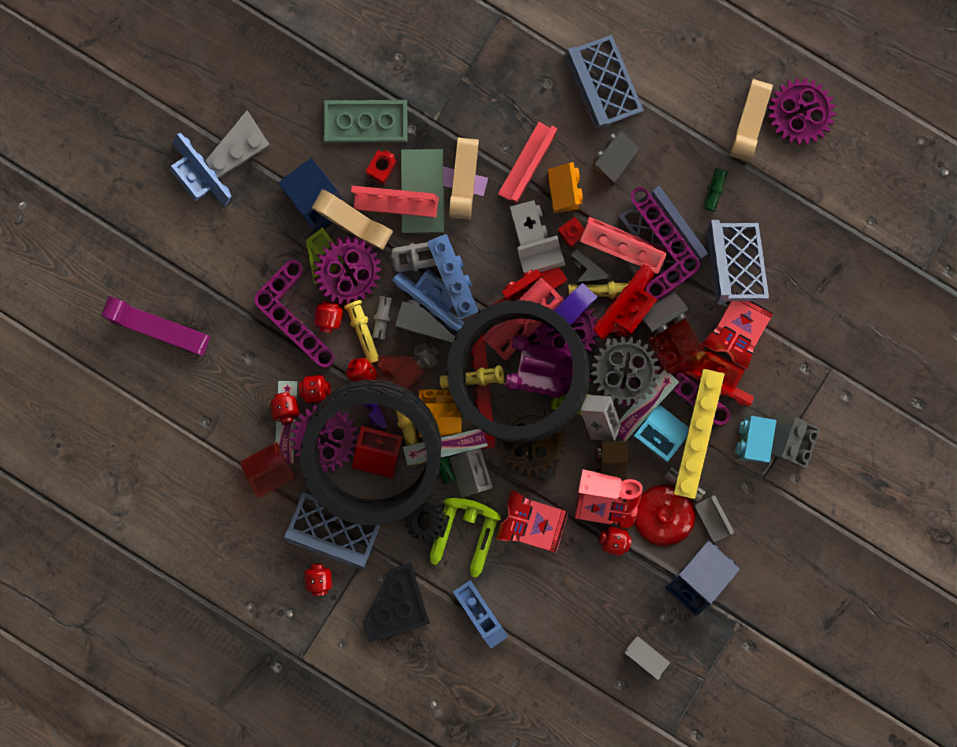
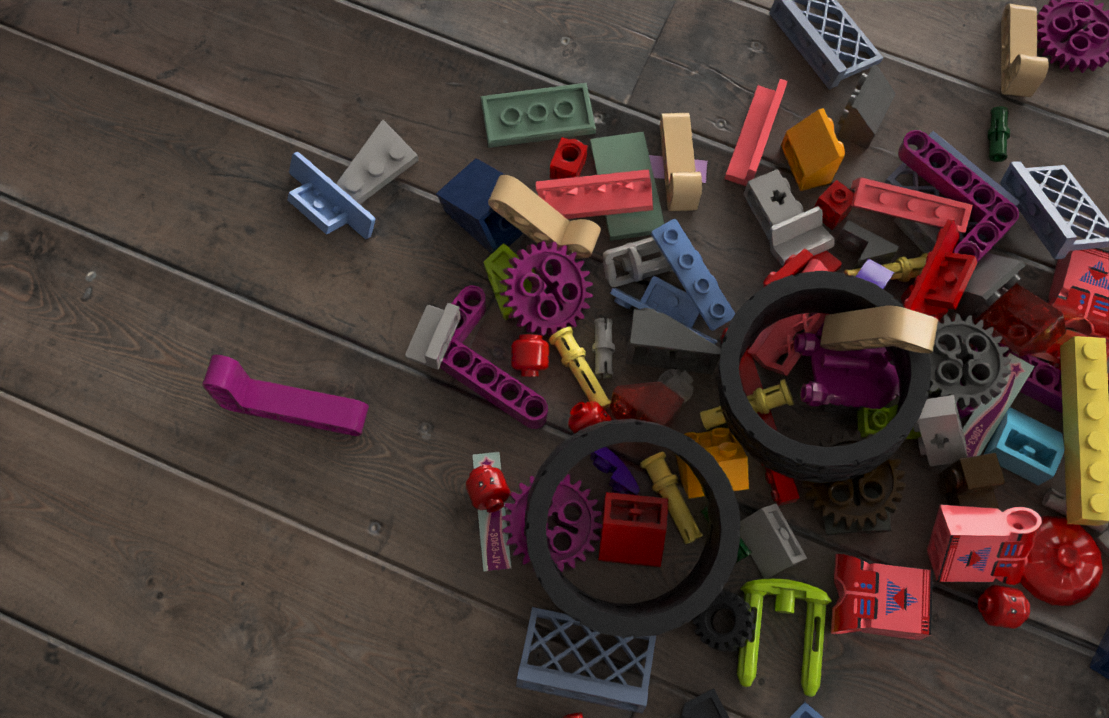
camera: 15 degrees left, 15 degrees down
(261, 295) = (433, 335): none -> light grey panel
(267, 470) = (477, 582): clear red slope -> none
(314, 388) = (525, 455): red head -> none
(450, 445) = (749, 498): sticker -> none
(558, 352) = (879, 328): none -> tan beam

